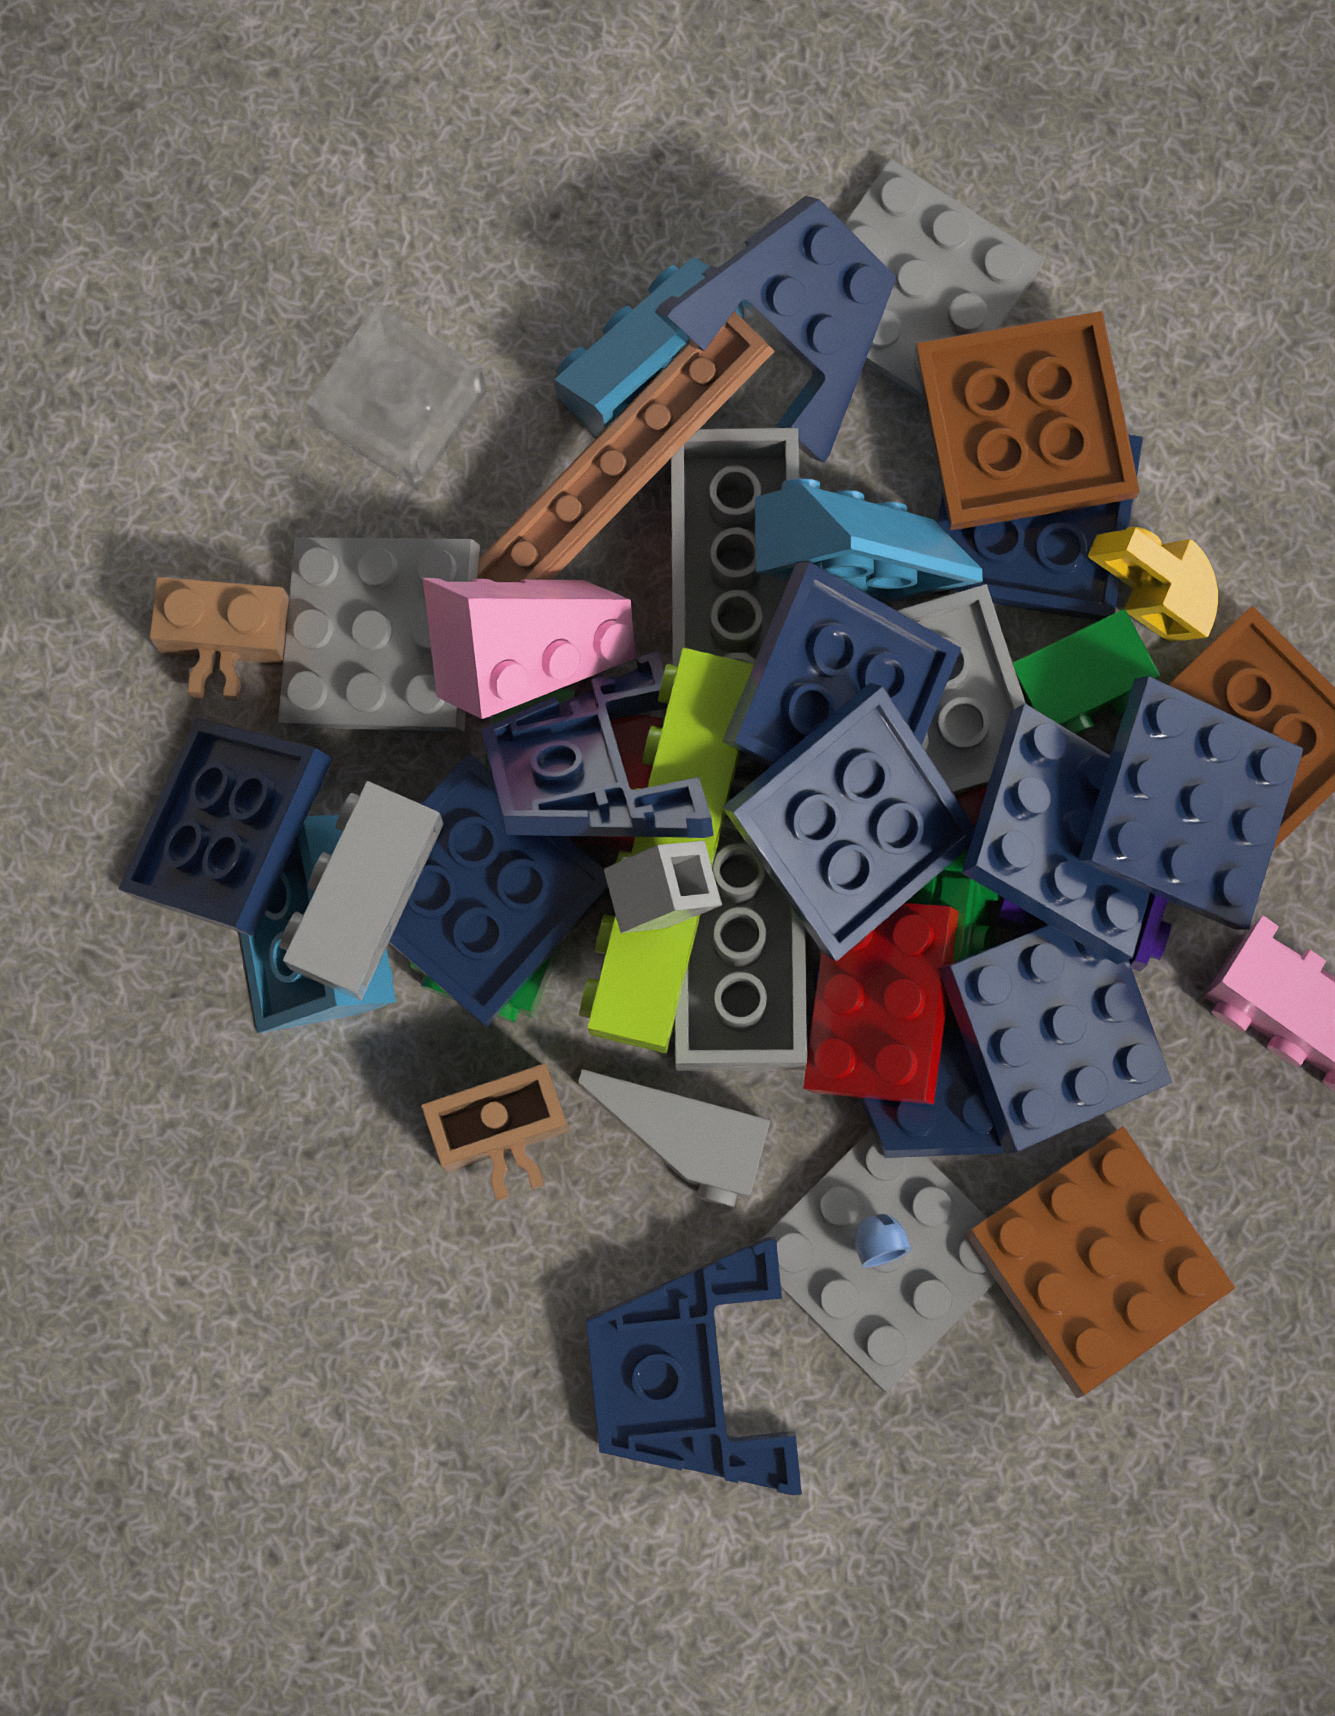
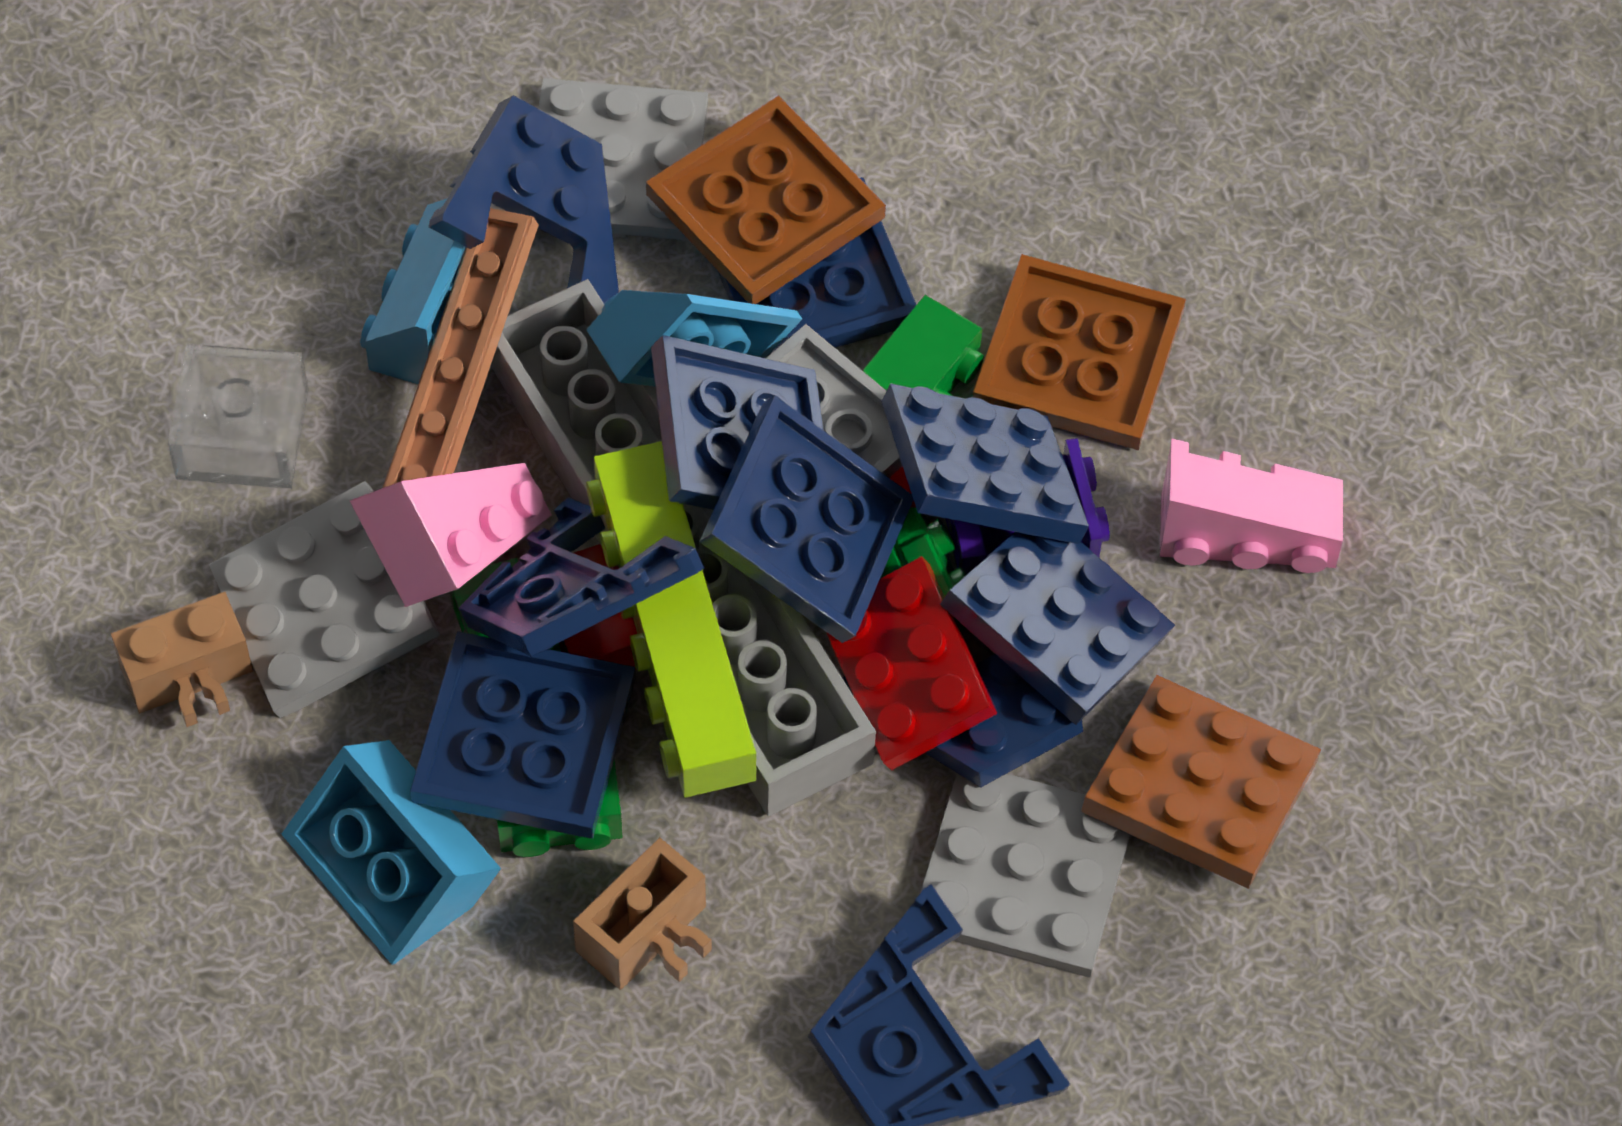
camera: 35 degrees left, 20 degrees down
(225, 825) = (276, 795): dark blue plate -> none
(361, 889) = (429, 765): light grey brick -> none
(662, 886) = (685, 619): light grey brick -> none
(696, 1139) = (807, 853): light grey slope -> none
(880, 1240) = (1018, 845): medium blue hinge -> none
(1169, 582) = (944, 263): yellow brick -> none
(1191, 803) = (1065, 397): dark blue plate -> none

